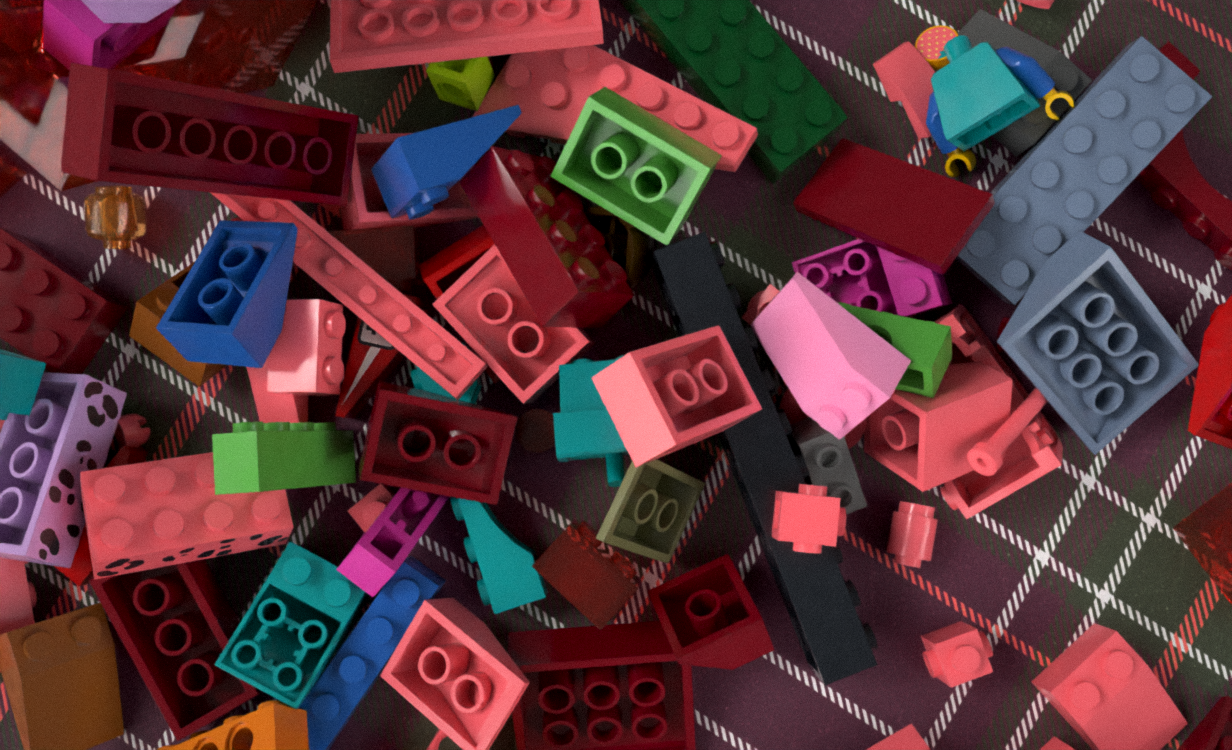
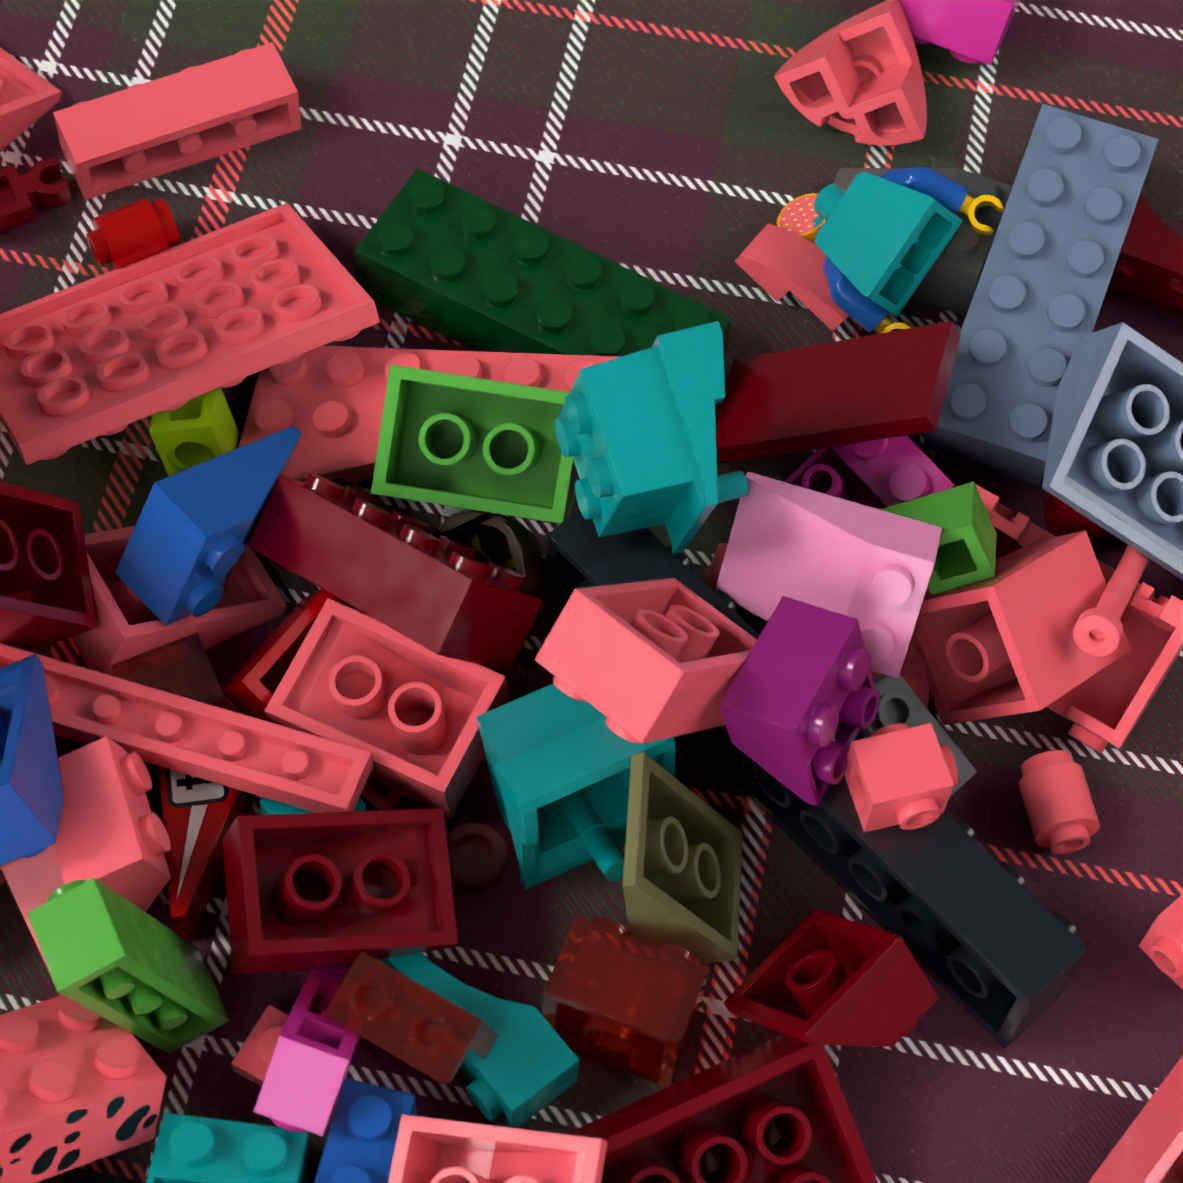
camera: 20 degrees left, 25 degrees down
(448, 547) = (408, 1019): none -> clear red bracket
(739, 231) = (649, 437): none -> teal piece
(764, 447) = (802, 697): none -> magenta slope

